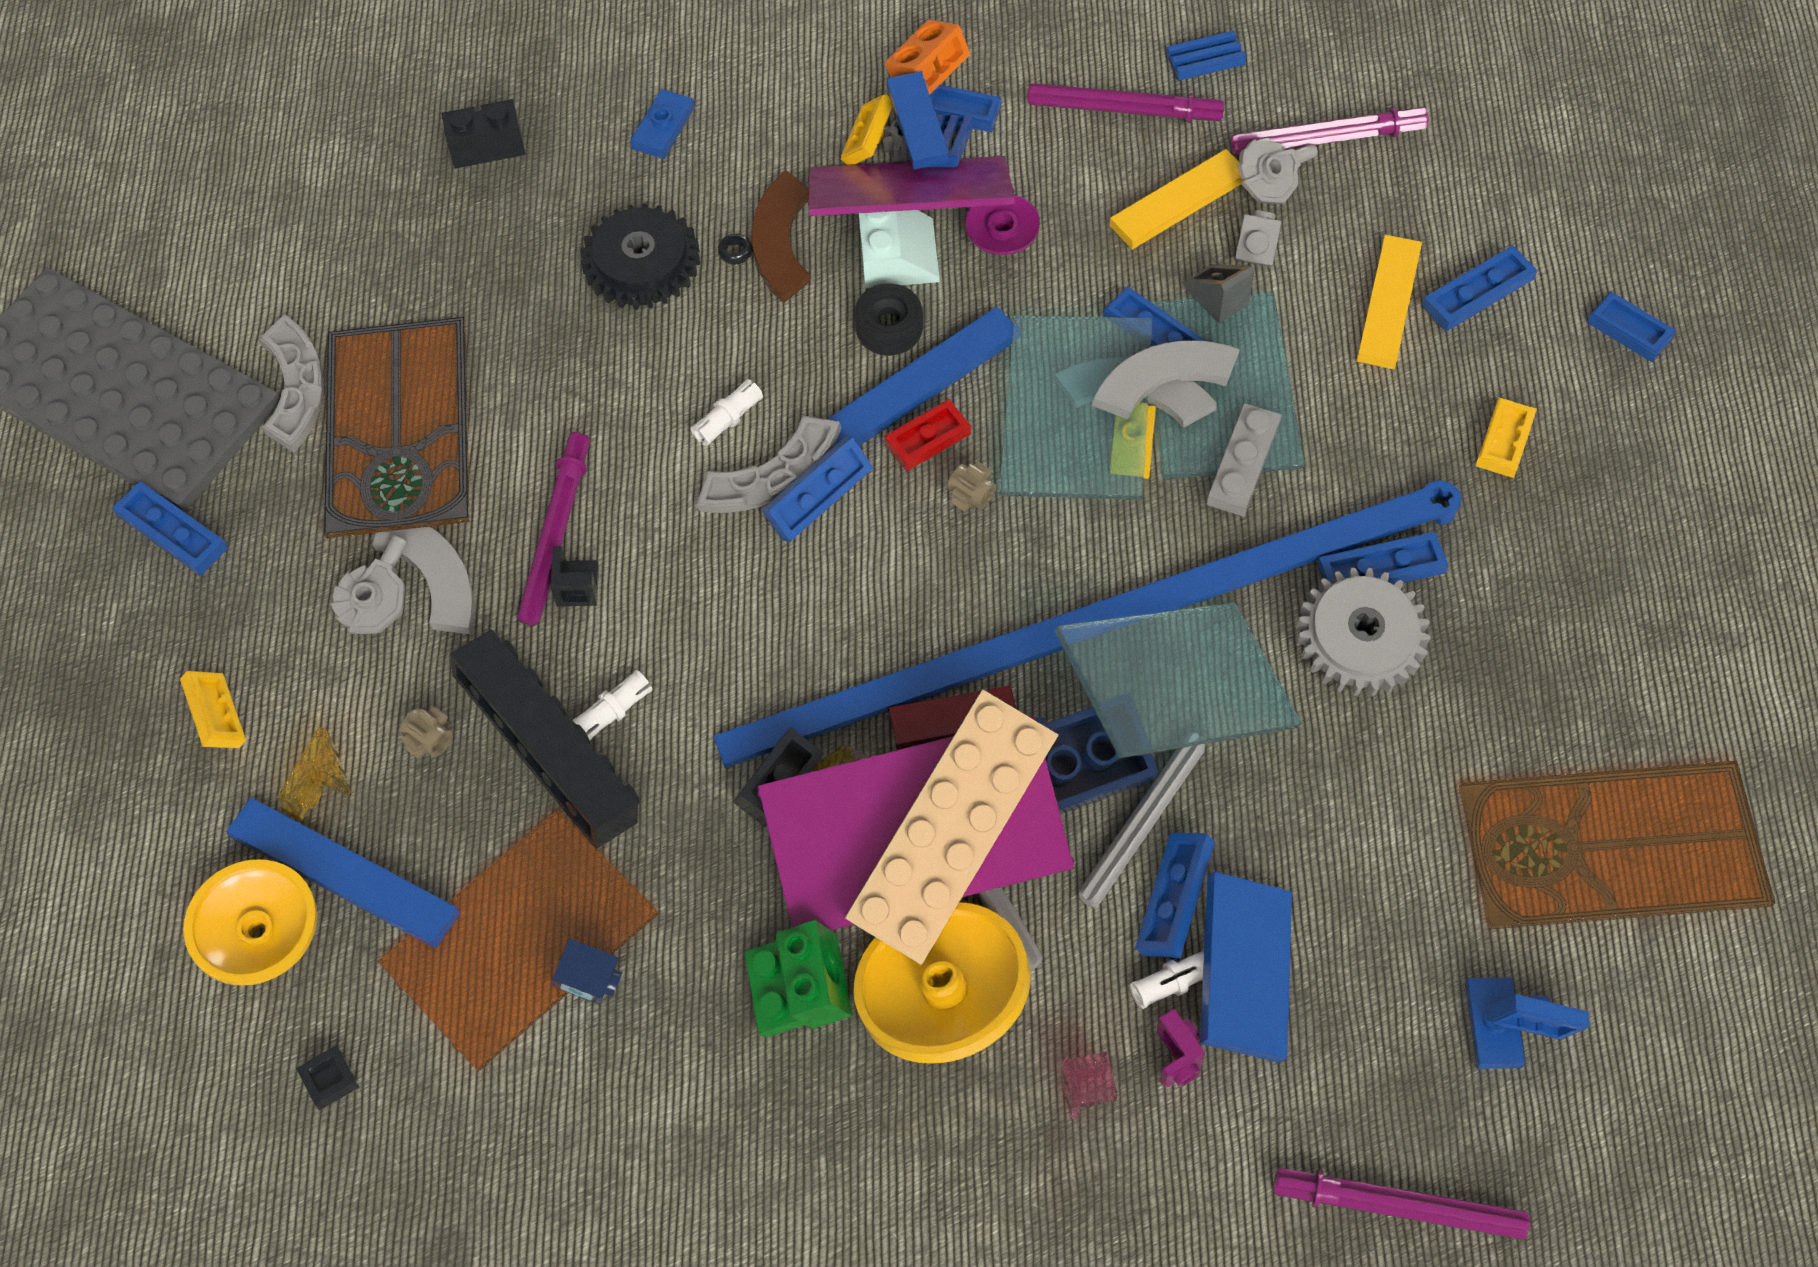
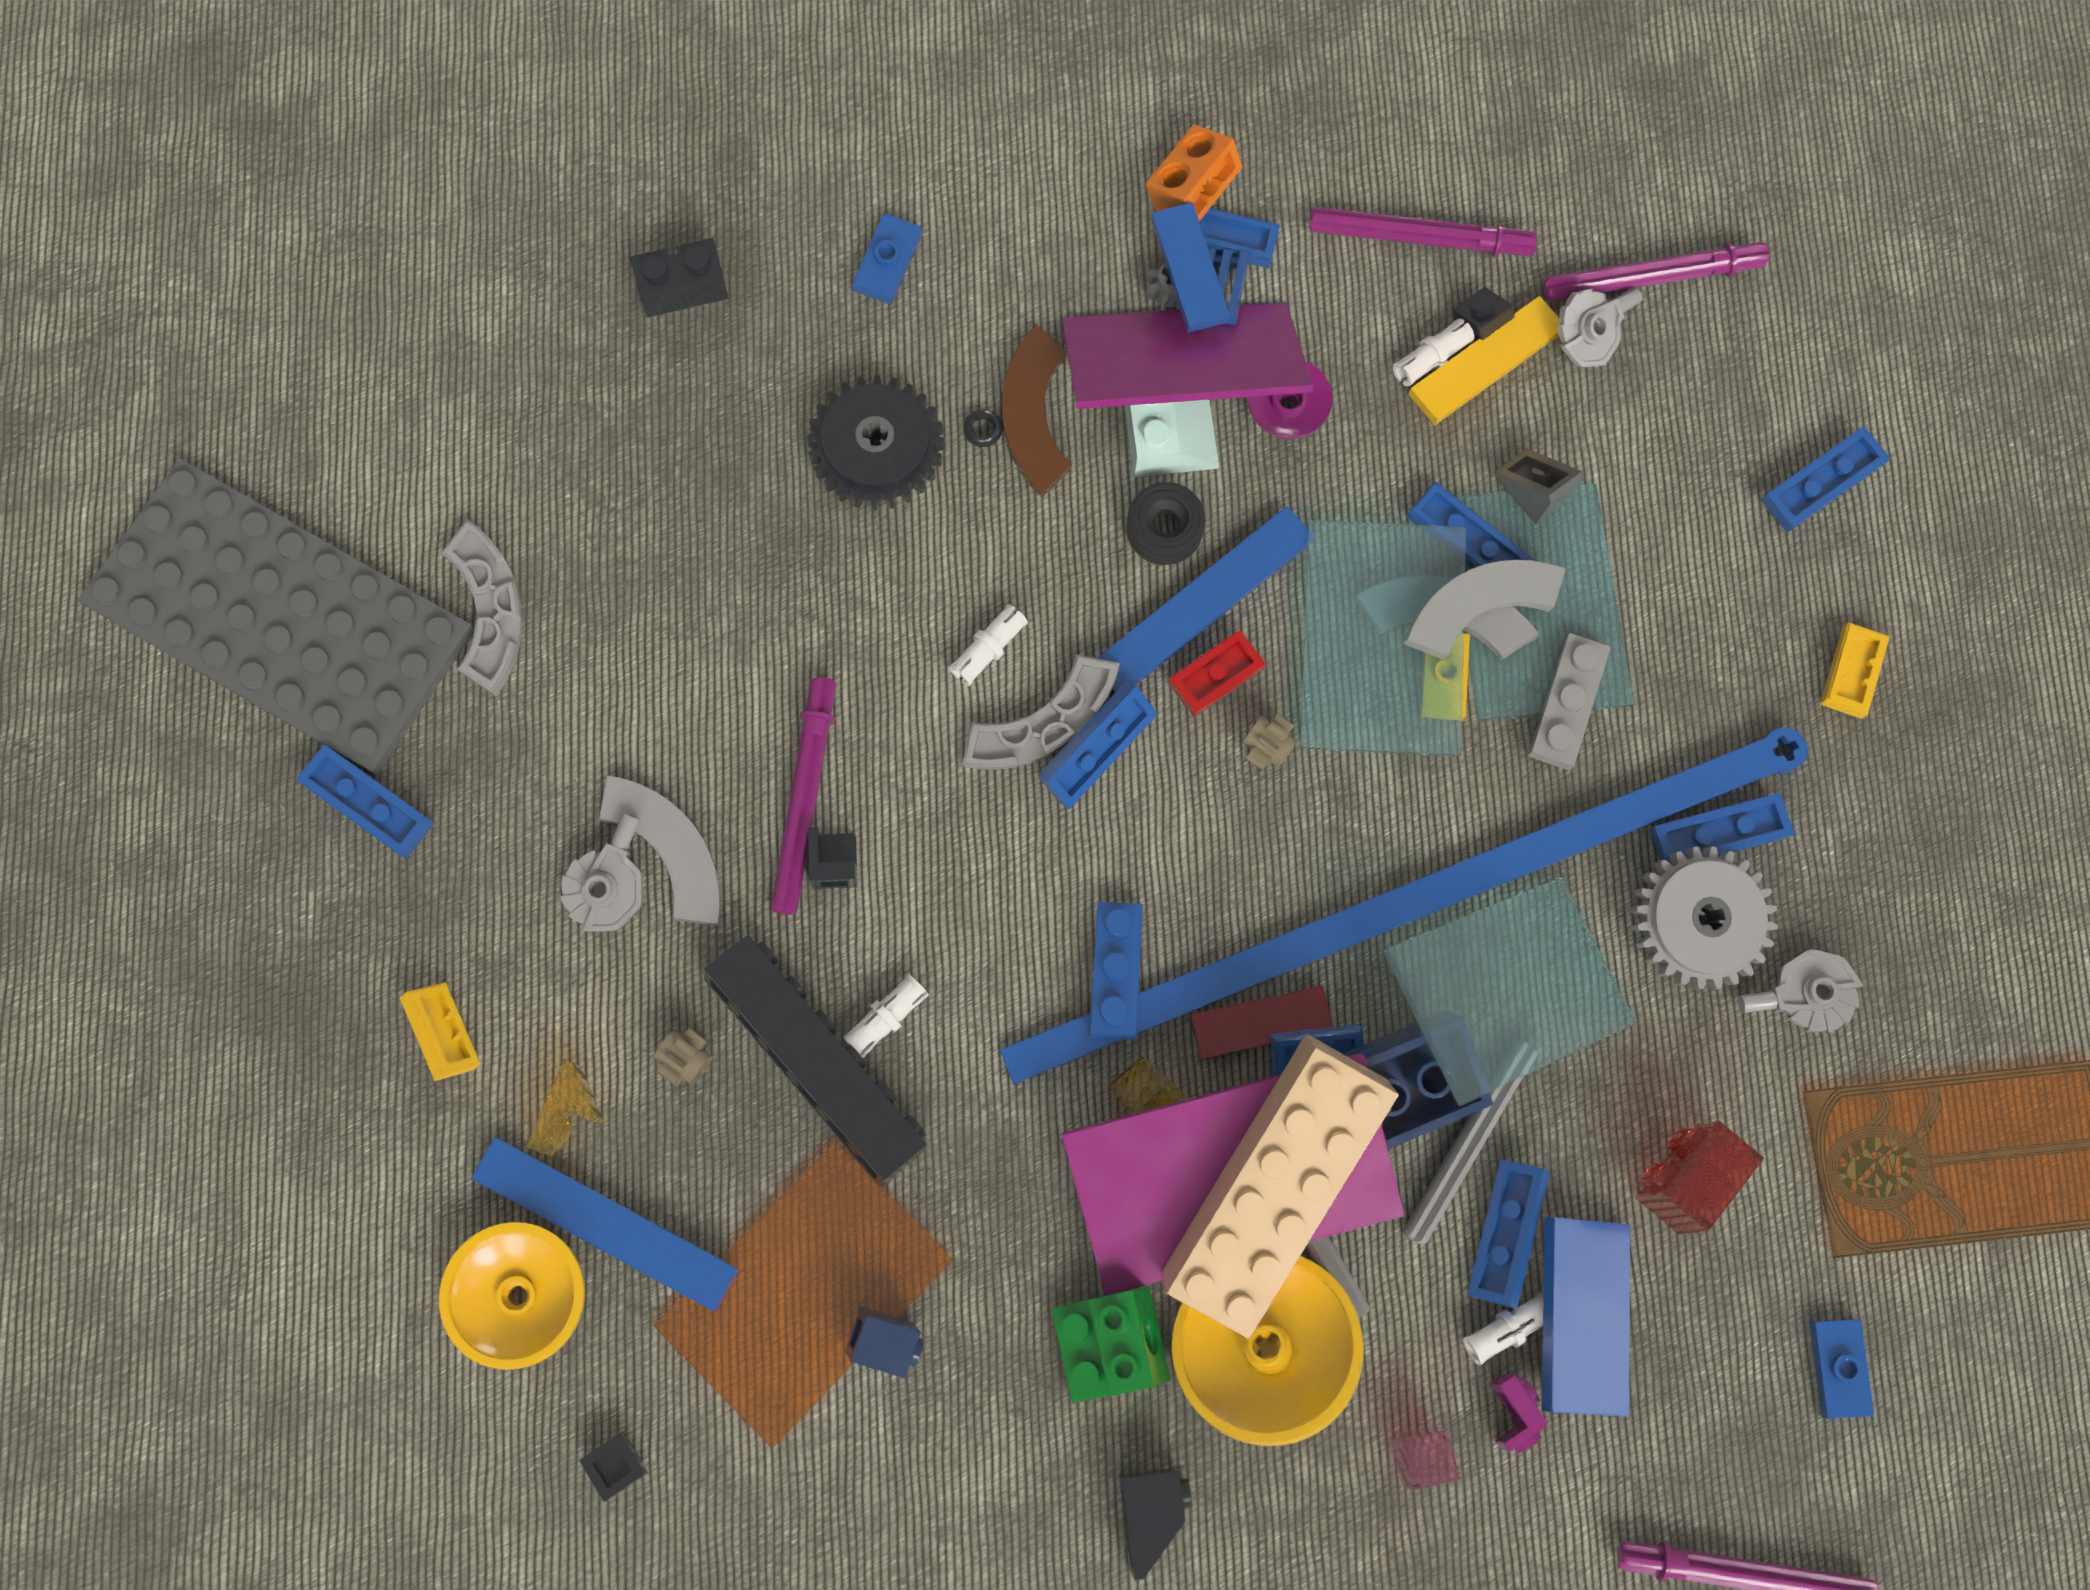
camera: 10 degrees left, 15 degrees up
(396, 428) = (612, 667): piece -> none
(789, 758) = (1079, 1099): black brick -> none
(823, 671) = (1116, 971): none -> blue plate
(827, 1130) = (1152, 1514): none -> black slope
(867, 130) = (1128, 271): yellow plate -> none
(1130, 191) = (1433, 352): none -> white pin
(1176, 161) = (1484, 312): none -> black plate
(1204, 51) = (1508, 152): blue tile -> none
(1258, 238) = (1579, 415): light grey bracket -> none
(1350, 841) = (1698, 1177): none -> clear red brick
(1389, 302) = (1725, 495): yellow tile -> none
(1466, 695) = (1813, 990): none -> light grey piece
(1538, 1016) = (1892, 1370): blue plate -> none
(1631, 326) = (1990, 525): blue tile -> none

